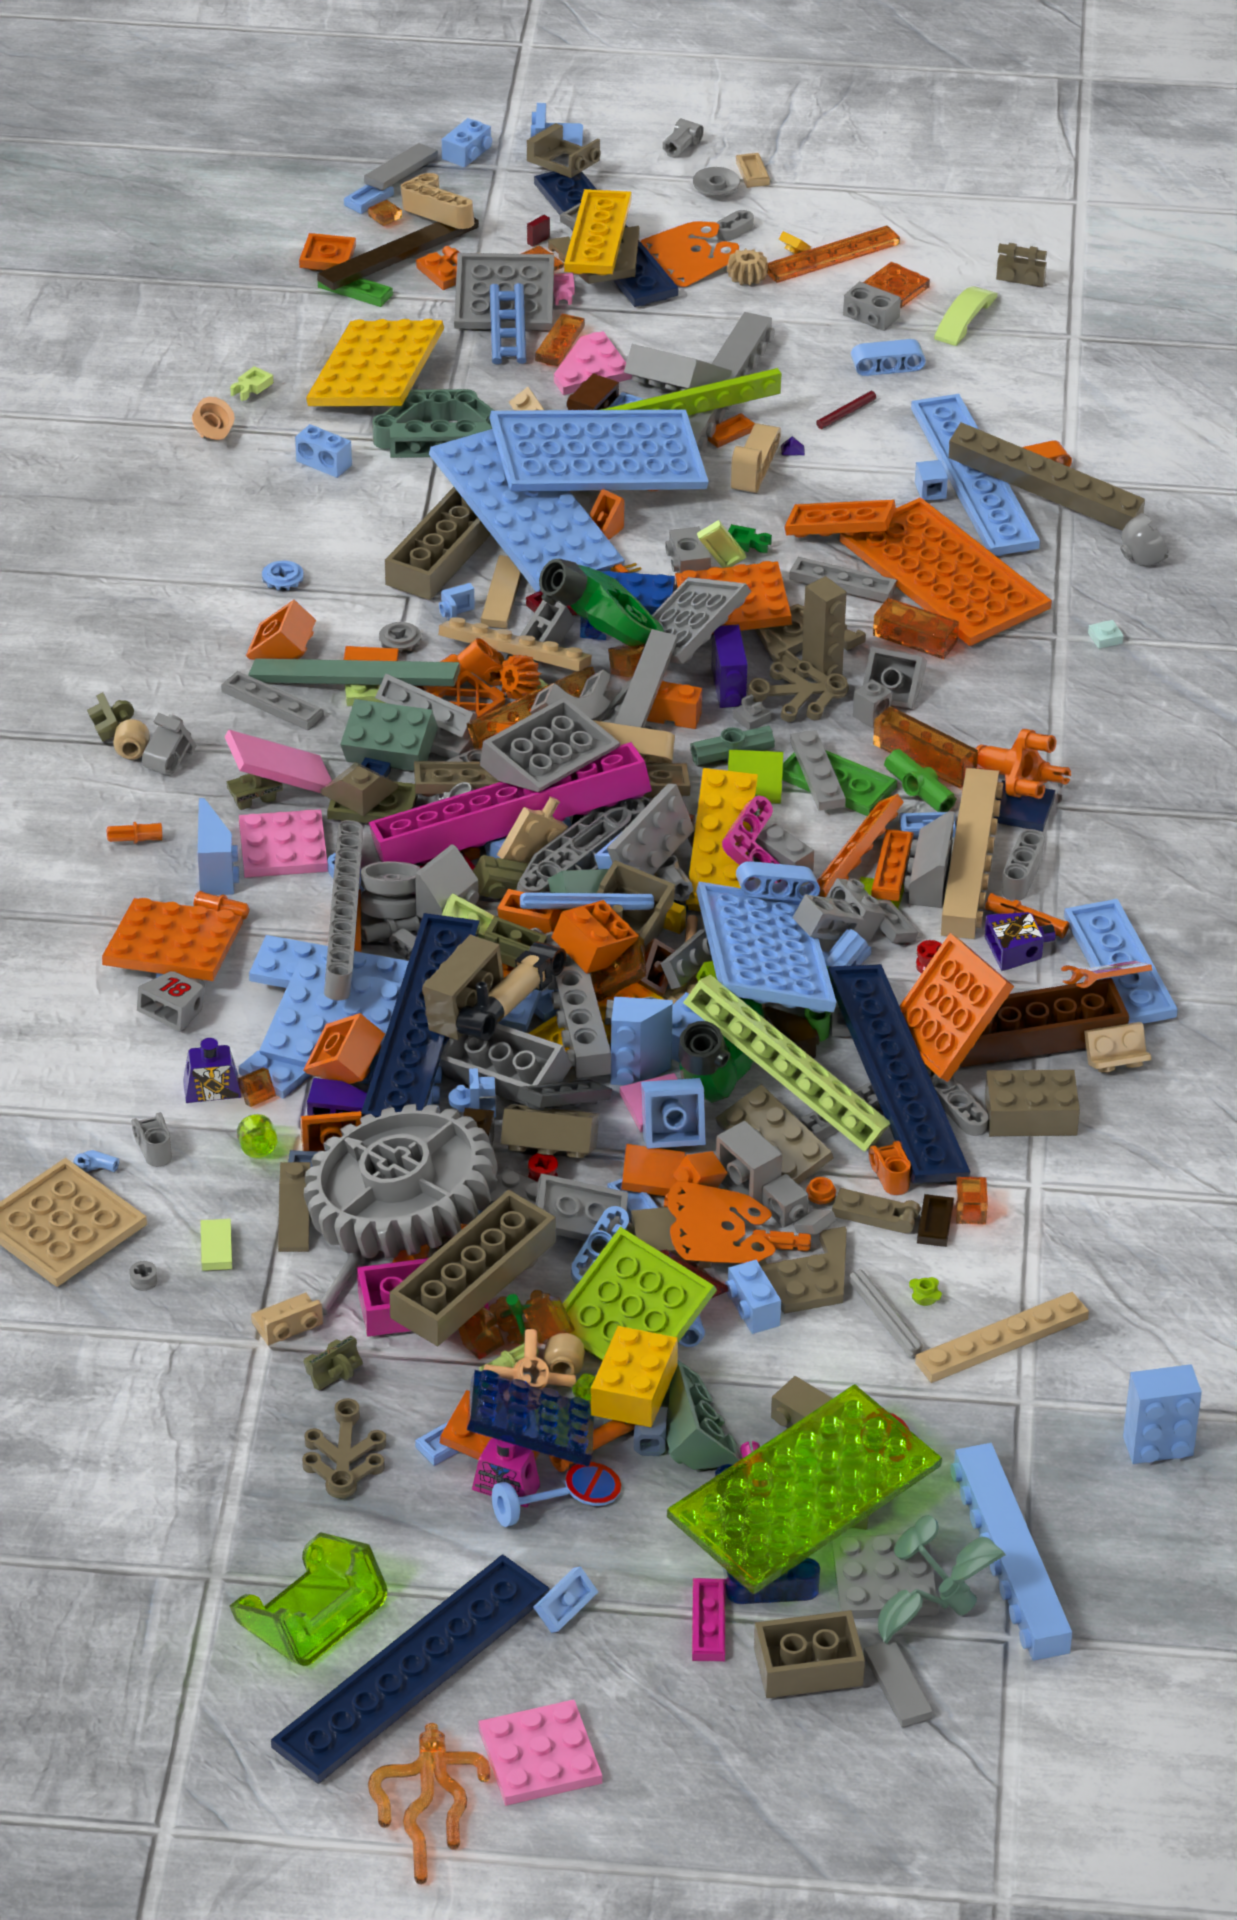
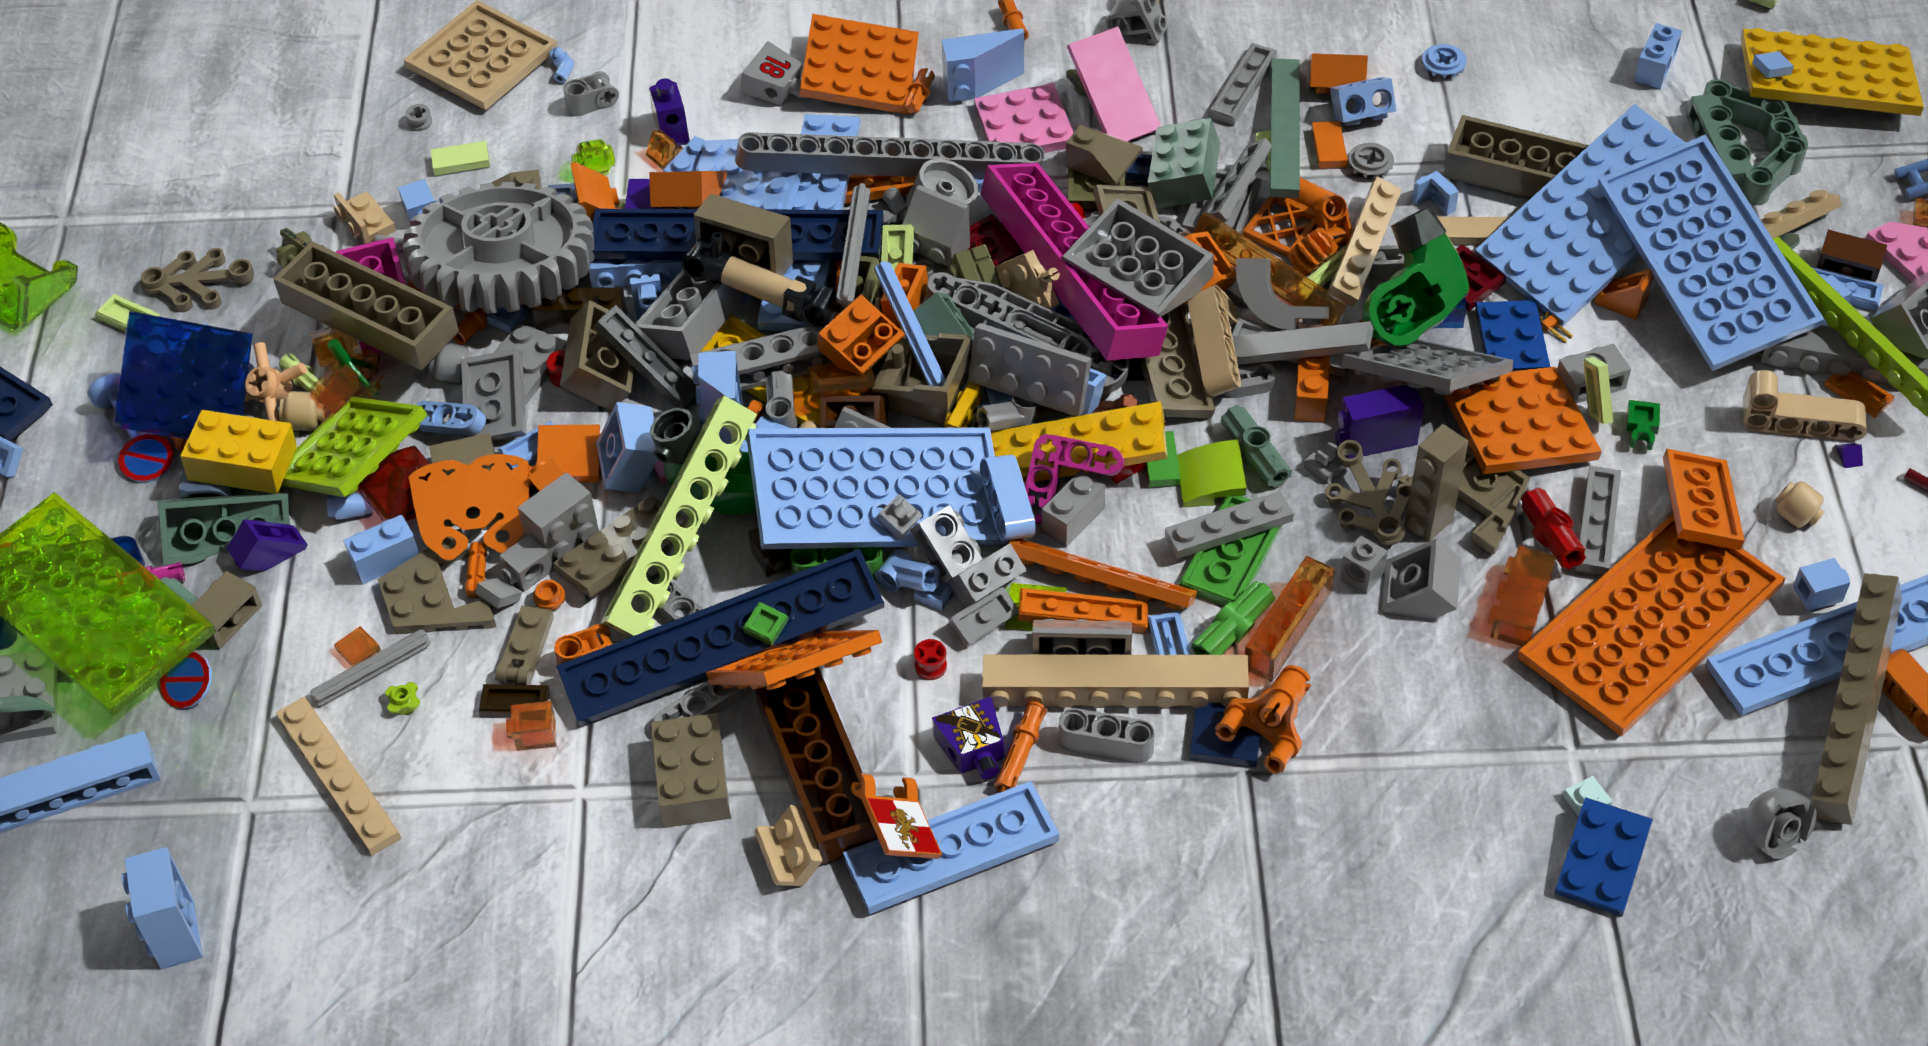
camera: 85 degrees right, 10 degrees up
(287, 1270) = (415, 197): none -> light blue brick
(332, 622) = (1362, 93): none -> light blue brick
(380, 379) = (1772, 64): none -> light blue tile
(385, 1507) = (116, 311): none -> yellowish green tile
(479, 924) = (853, 245): none -> light grey axle
(734, 1383) = (264, 544): none -> dark purple slope
(802, 933) = (899, 516): none -> light grey tile
(847, 476) = (1800, 504): none -> tan head
(859, 1324) = (357, 646): none -> clear orange tile
(861, 596) = (1553, 528): none -> red piece
(895, 1034) = (765, 623): none -> bright green tile
(1162, 631) = (1603, 856): none -> blue plate

